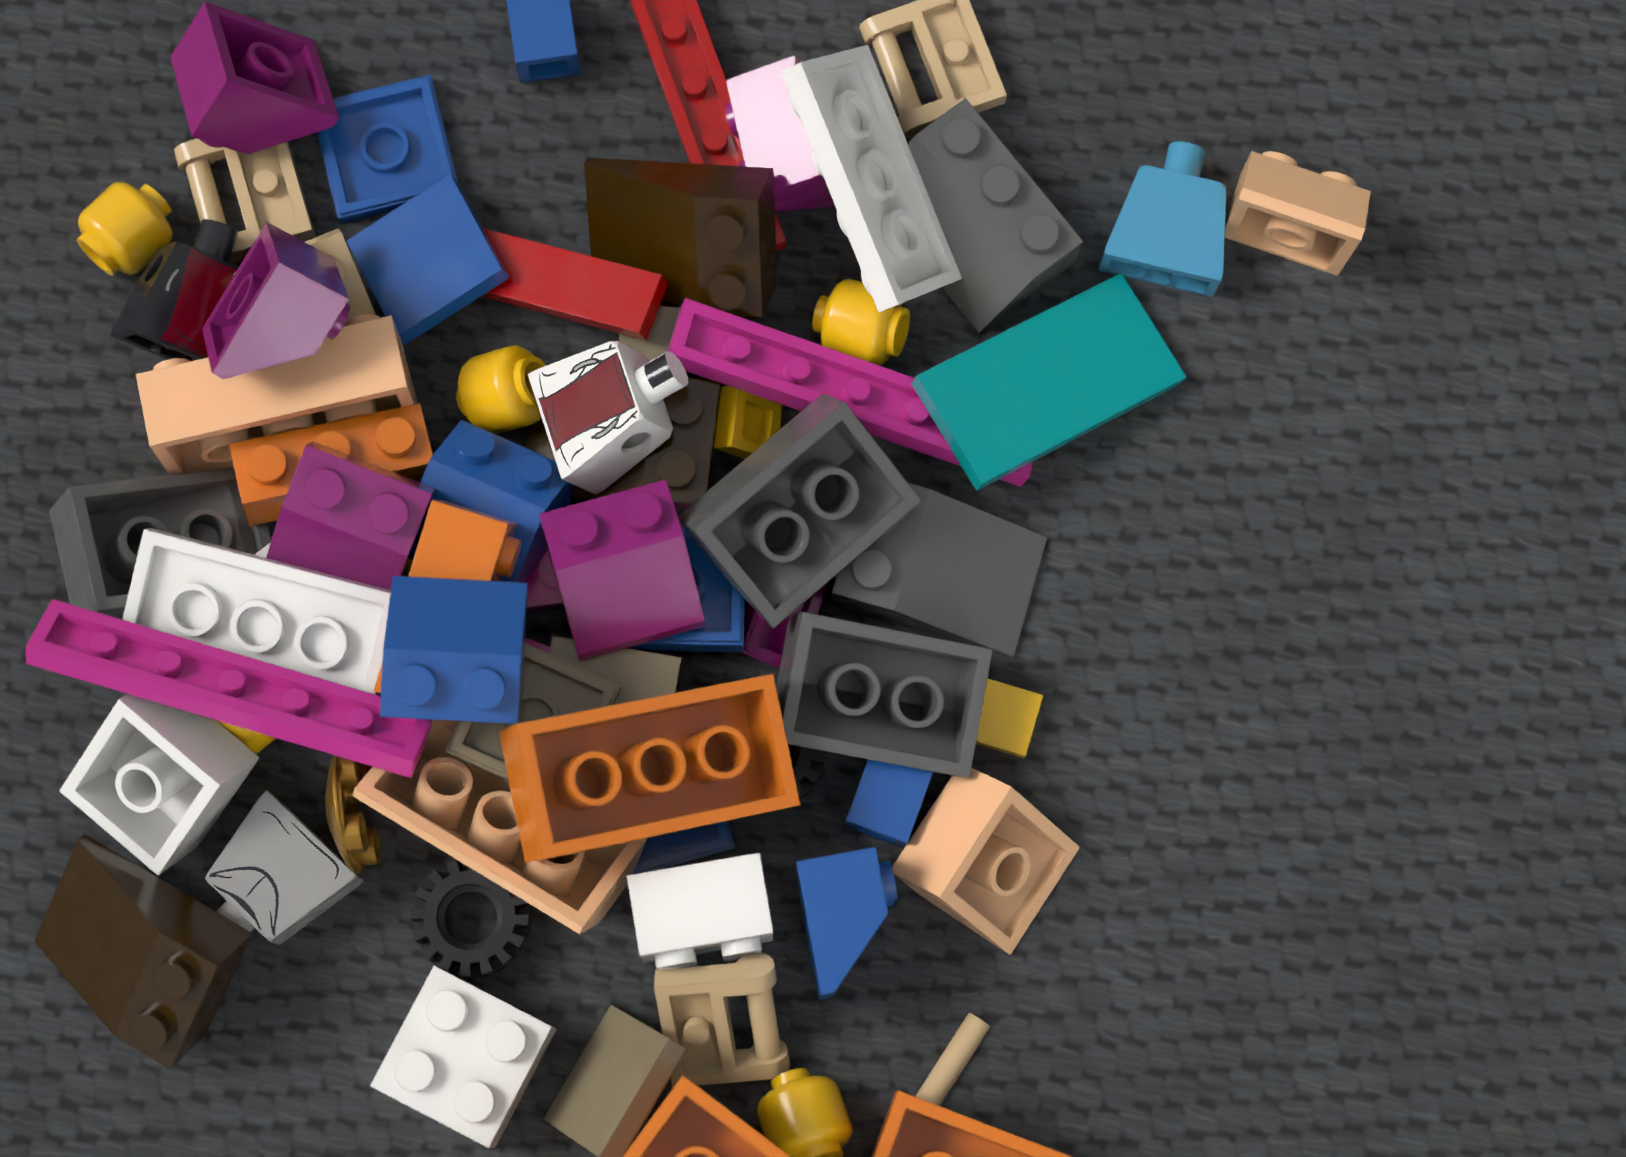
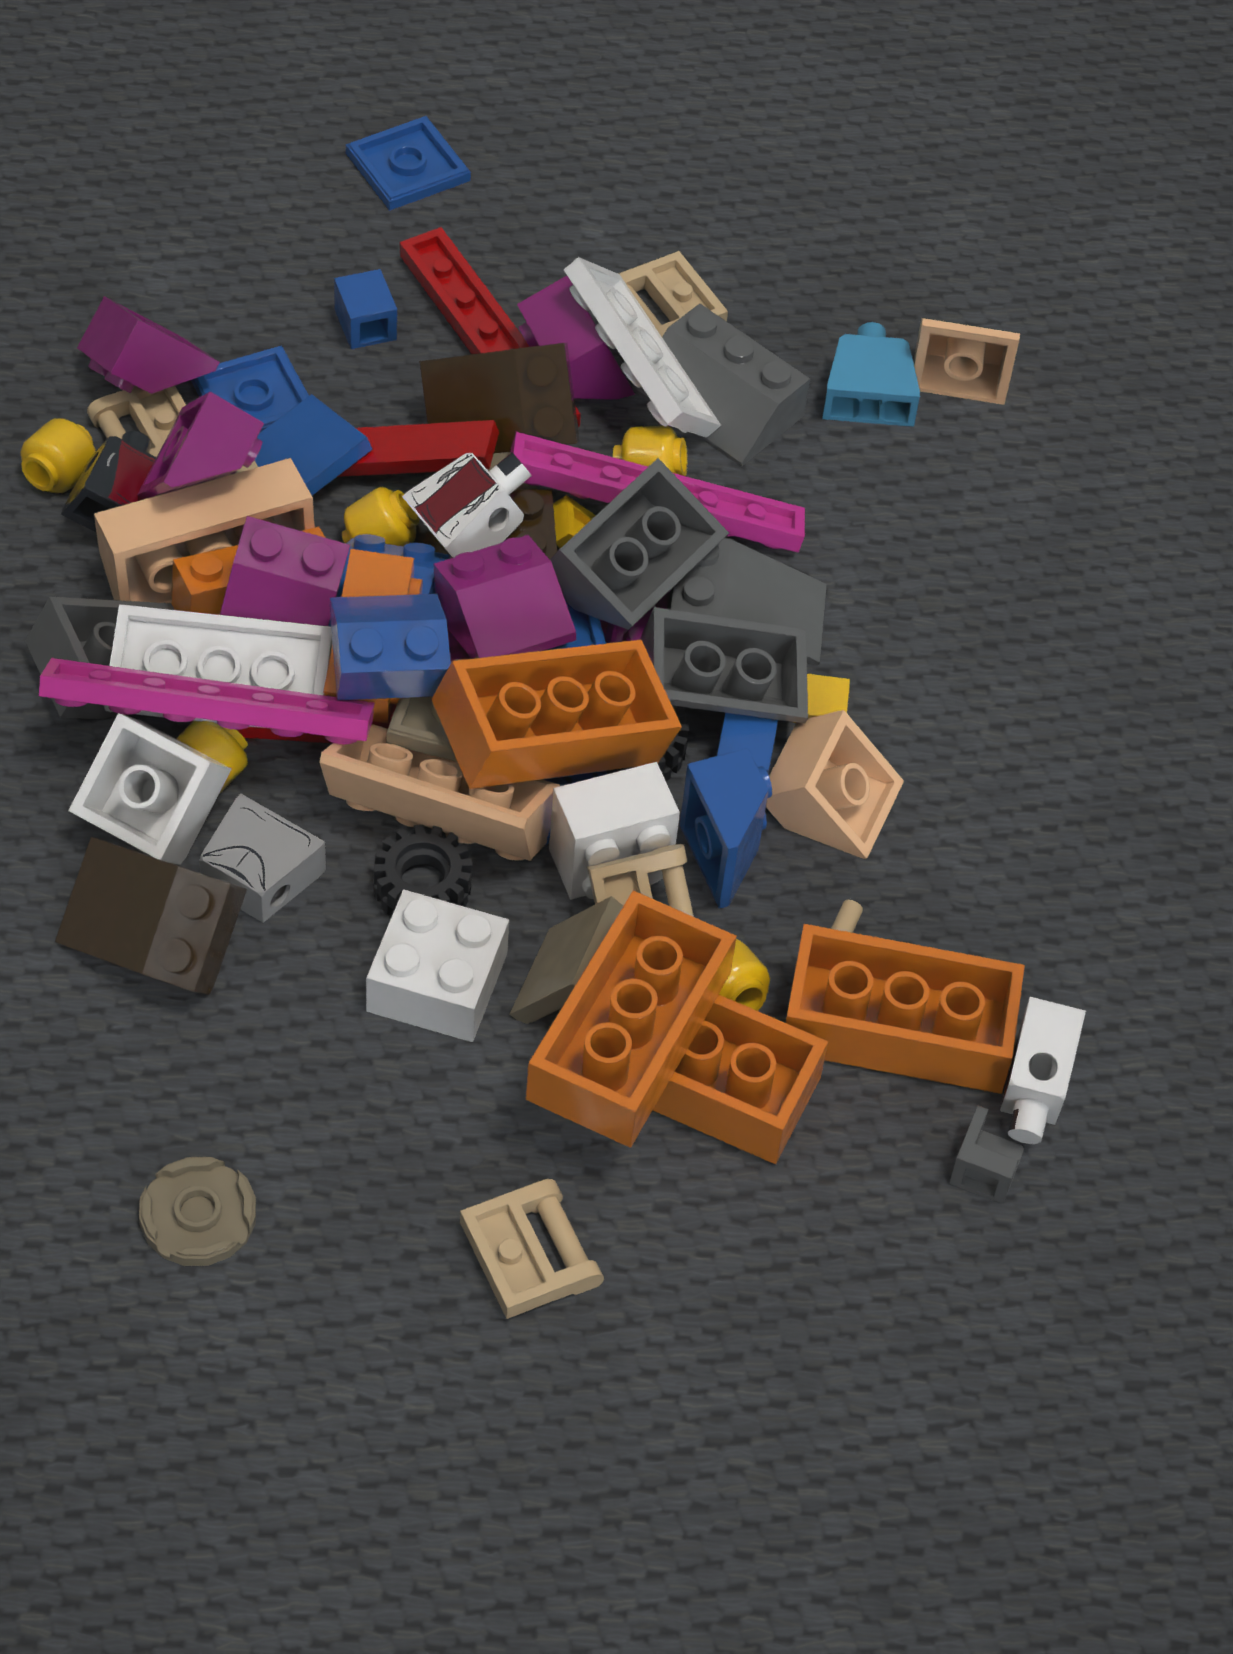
camera: 10 degrees left, 25 degrees down
(355, 842) = (311, 800): pearl gold dish -> none
(1048, 381) = (803, 476): teal tile -> none

